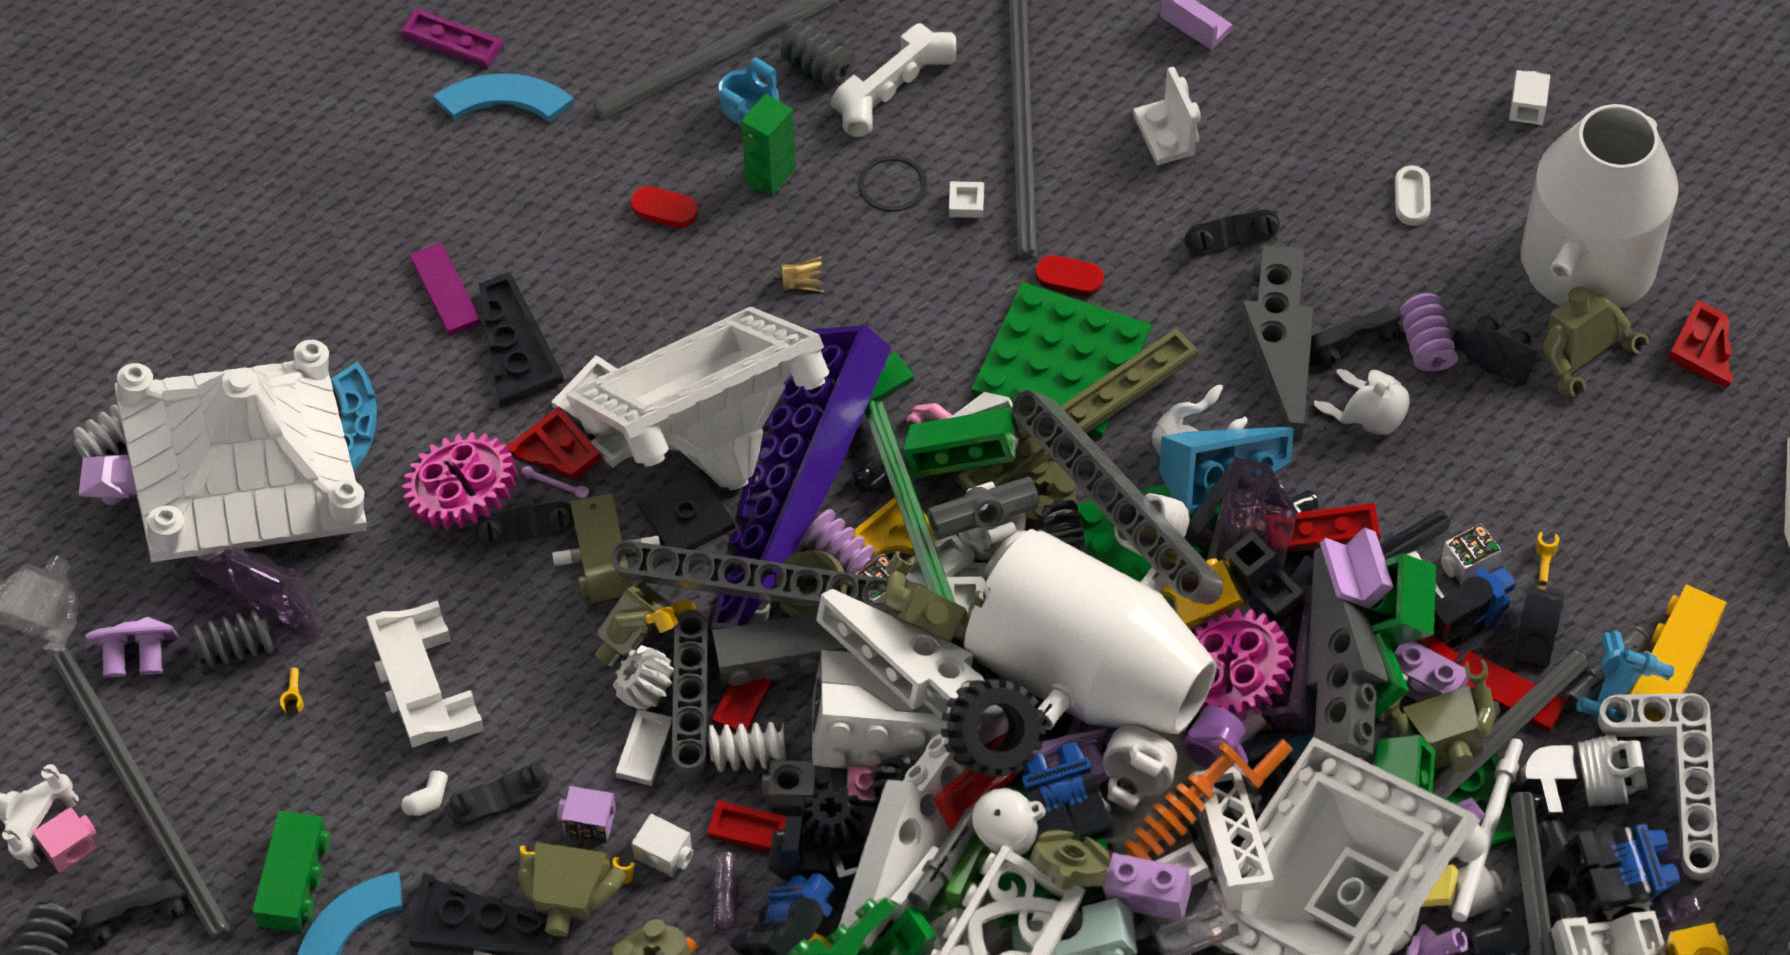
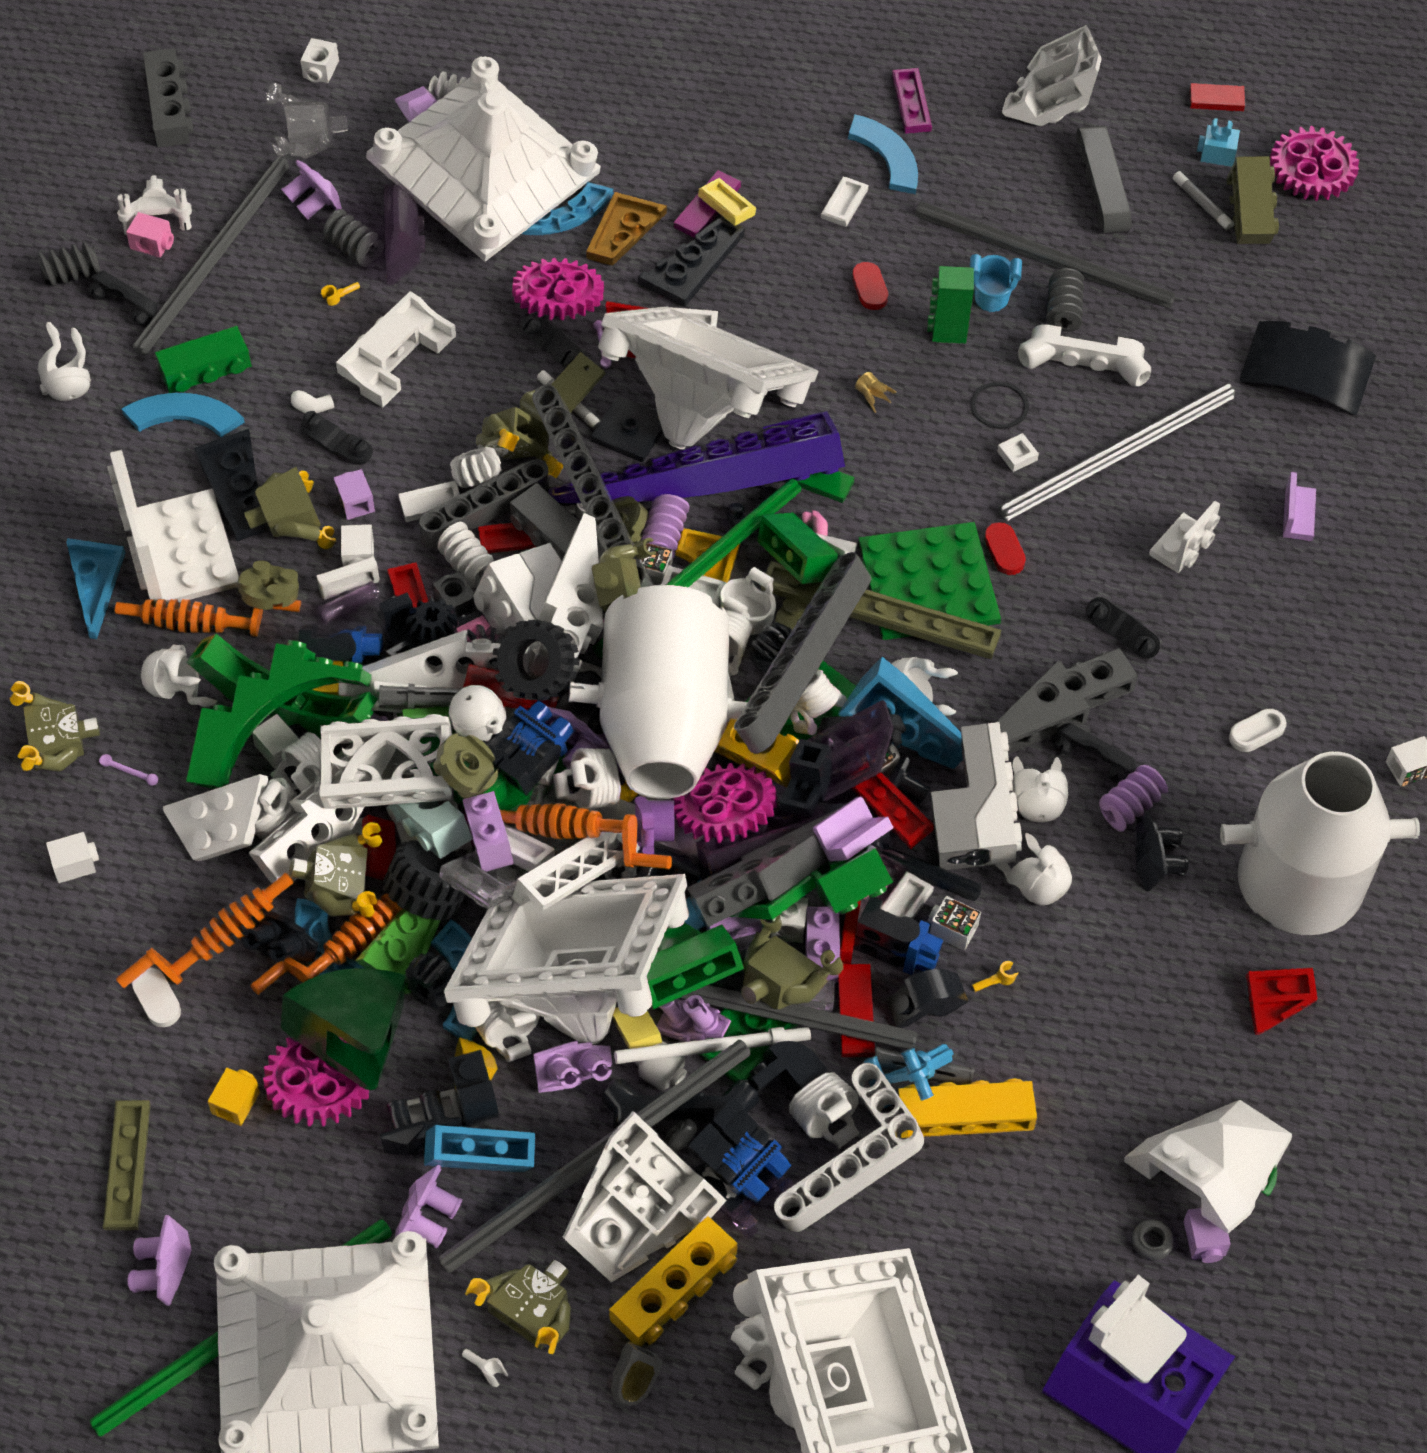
camera: 55 degrees right, 0 degrees up
(416, 380) = (622, 227): none -> pearl gold wing
(464, 267) = (727, 201): none -> light yellow tile
(537, 168) = (844, 201): none -> white tile
(696, 874) = (347, 578): none -> white tile
(1002, 503) = (730, 575): dark grey piece -> none
(1384, 452) = (977, 822): none -> piece
(1472, 459) = (1040, 878): none -> white hair
(1582, 331) = (1214, 898): olive torso -> none

